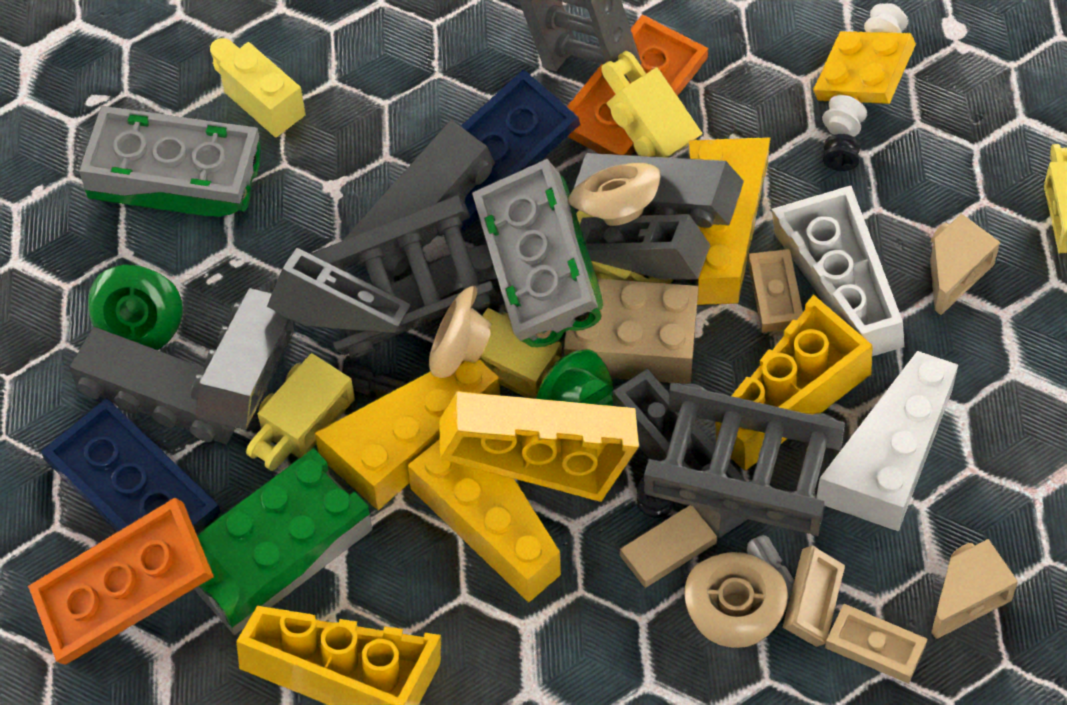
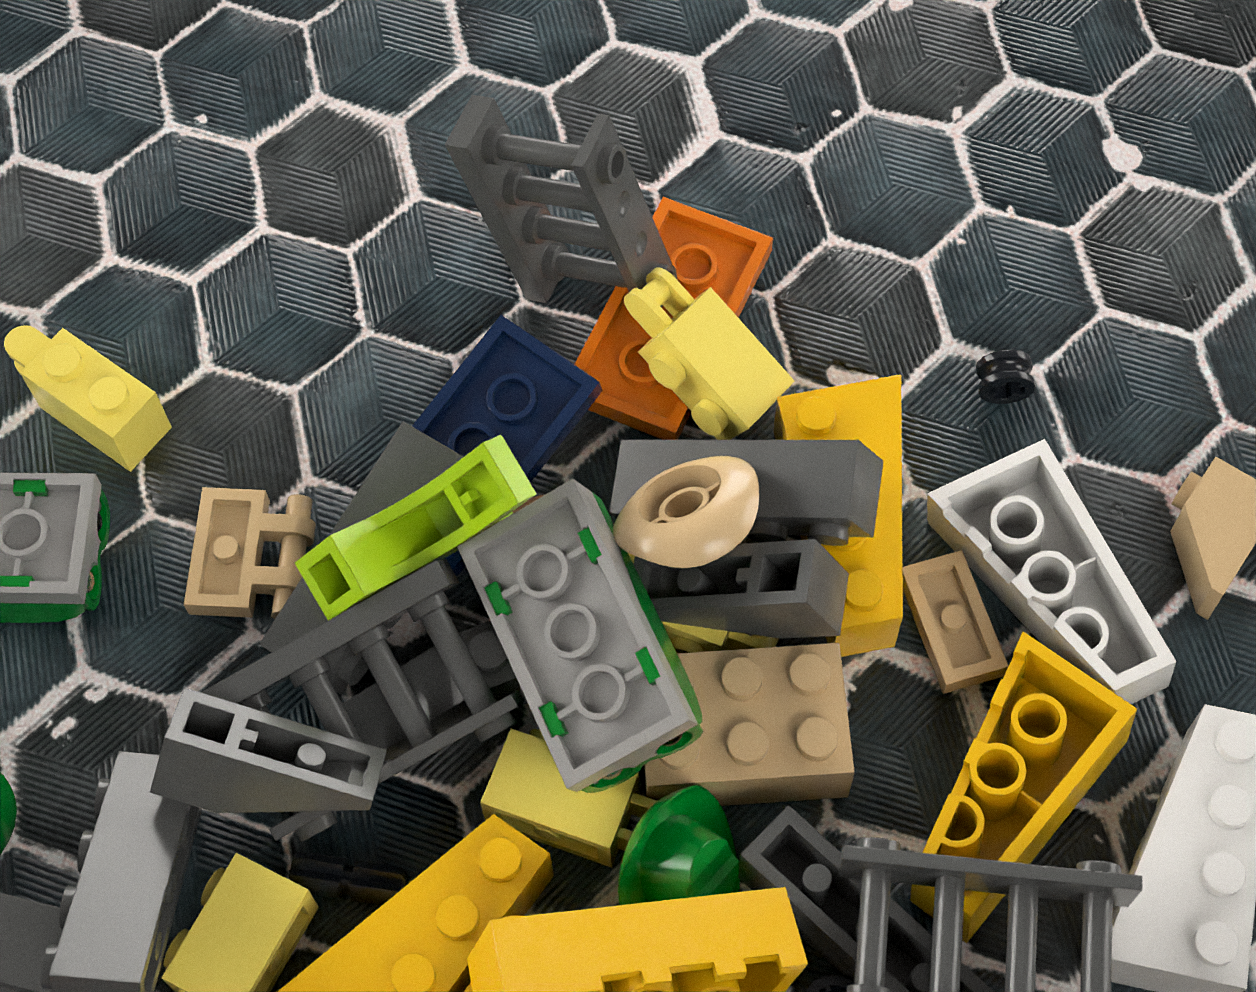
camera: 10 degrees left, 5 degrees up
(332, 186) = (229, 550): none -> tan plate
(460, 336) = (475, 803): tan hat -> none
(461, 174) = (417, 529): none -> lime arch
(864, 68) = (1012, 239): yellow plate -> none

